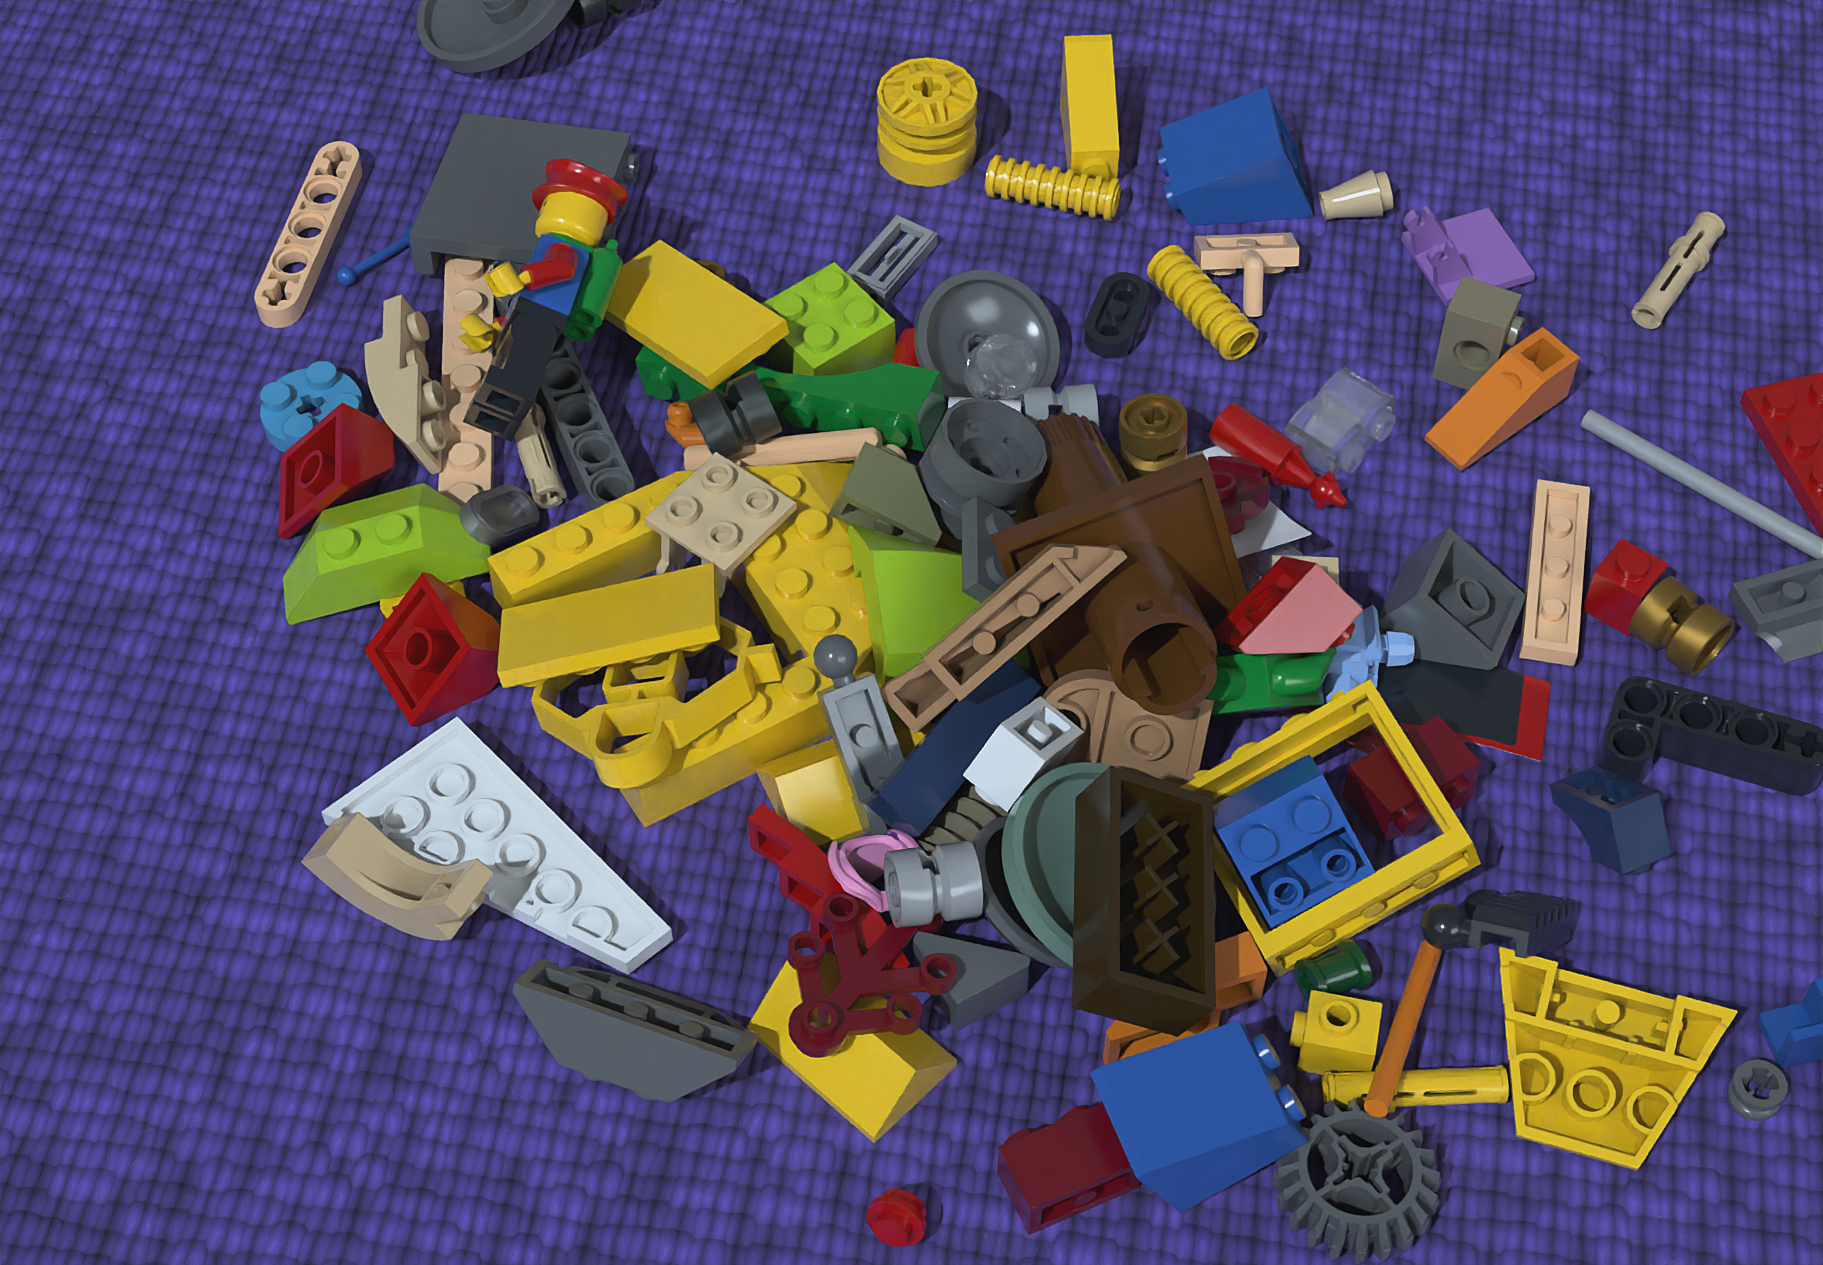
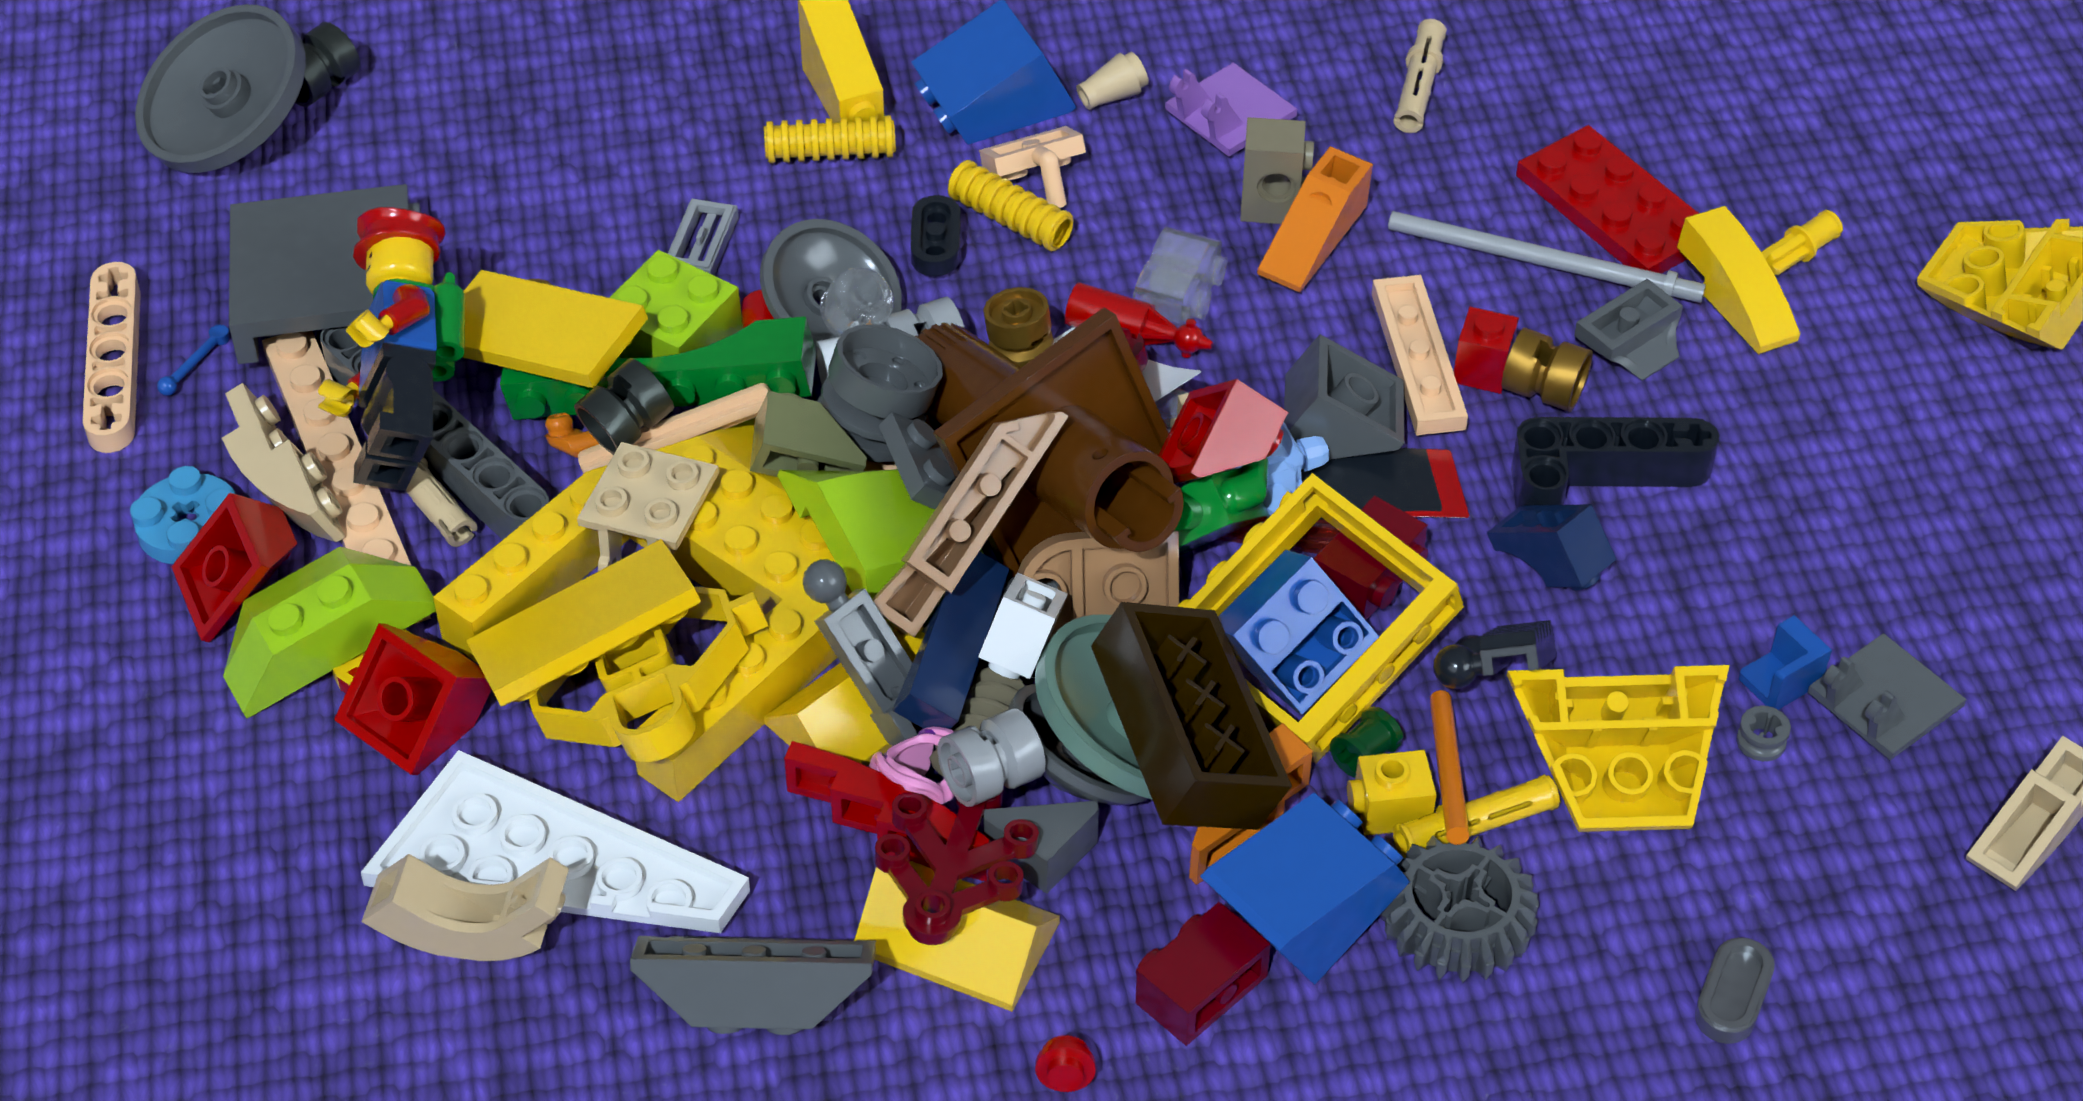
camera: 20 degrees left, 5 degrees down
(499, 515) = (424, 558): flat silver tile -> none
(926, 121) = (689, 107): yellow wheel -> none

